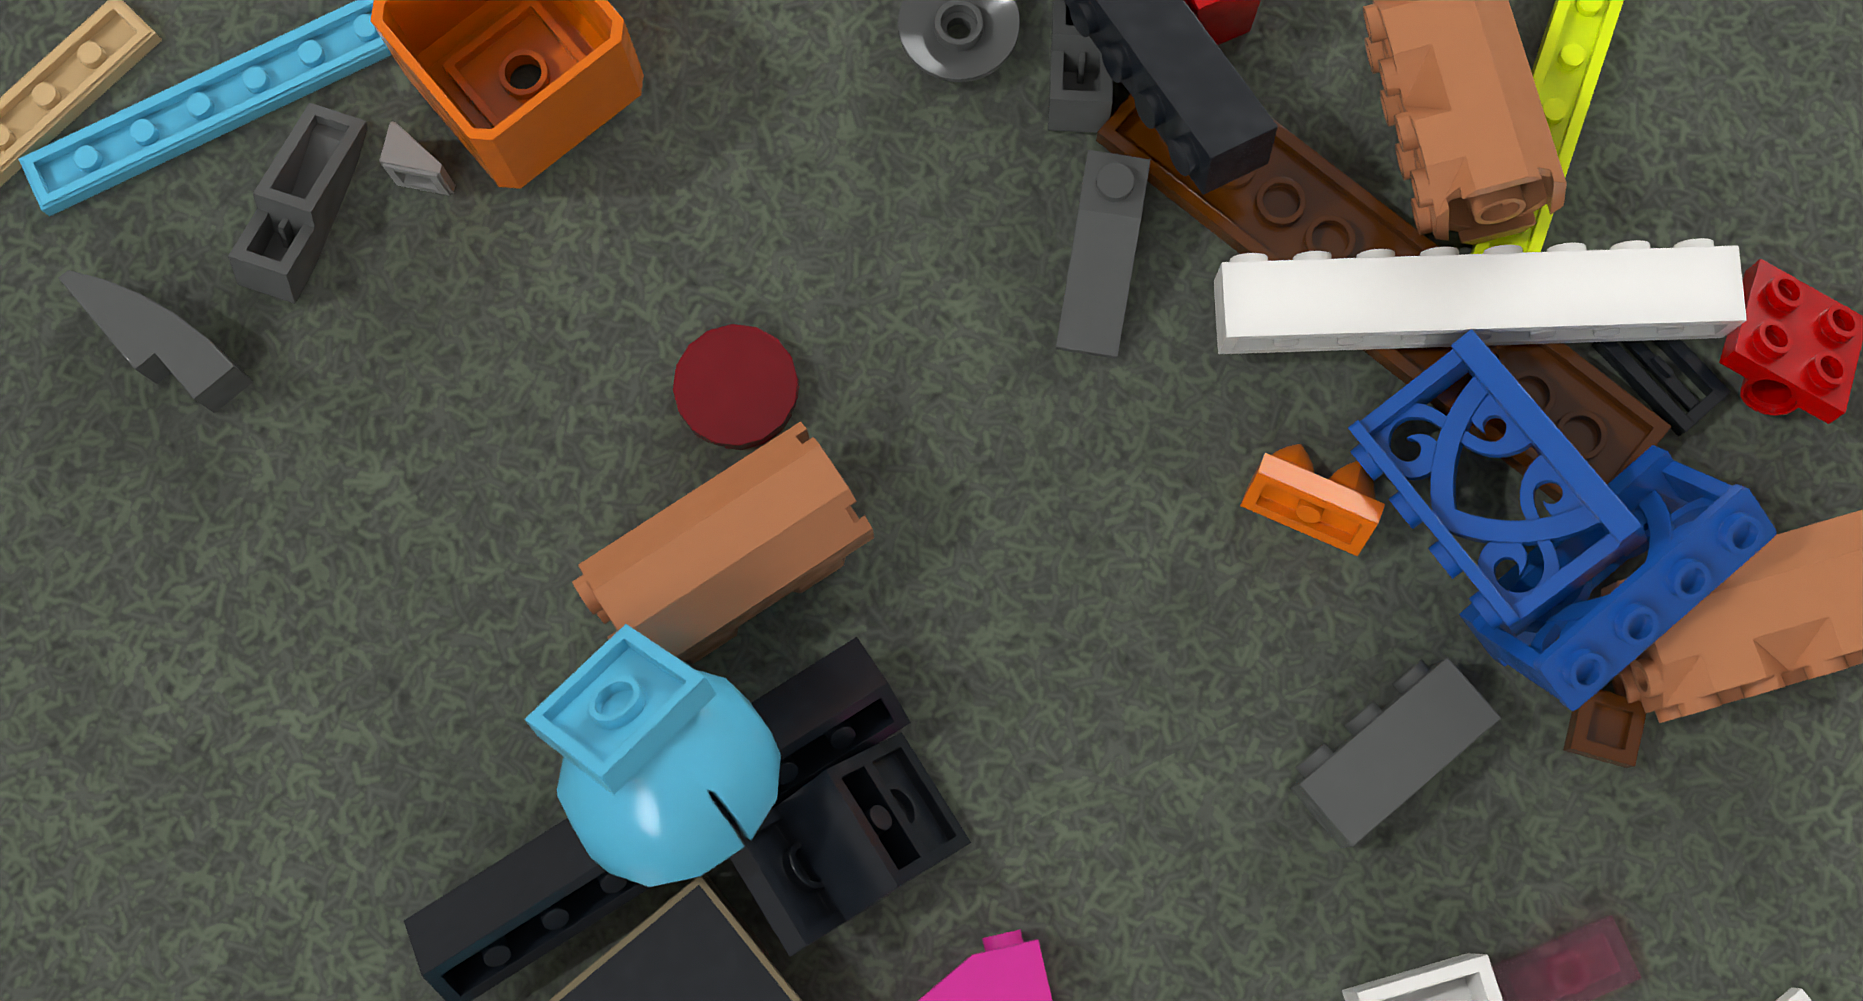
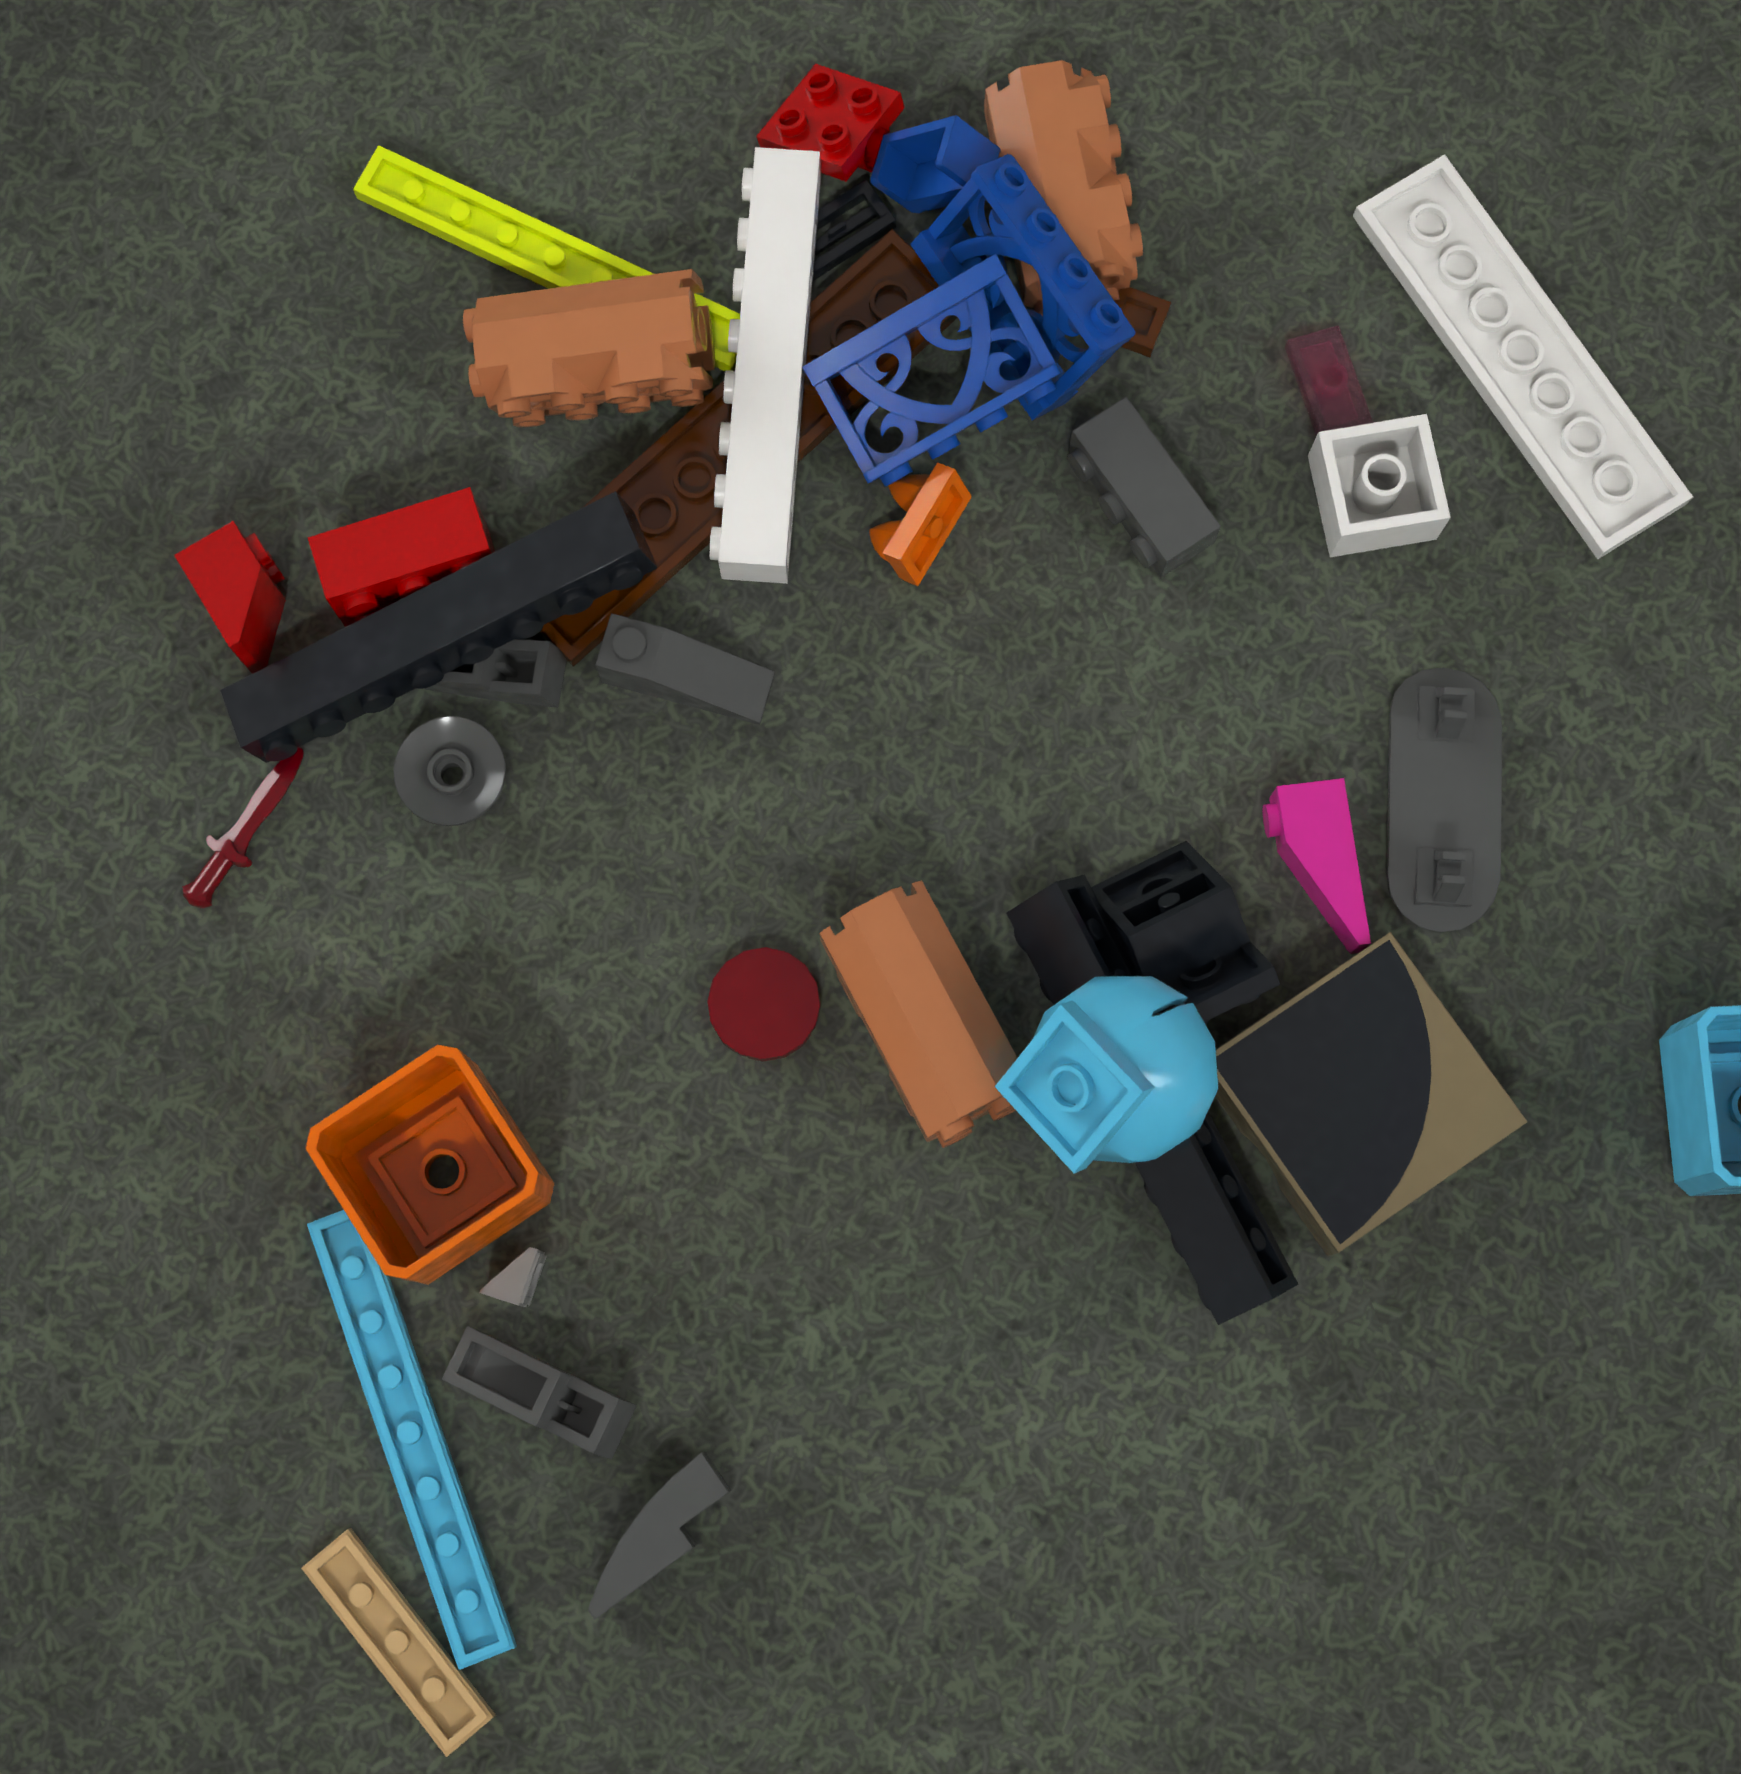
camera: 85 degrees left, 0 degrees up
(1763, 449) = (930, 162): none -> blue panel

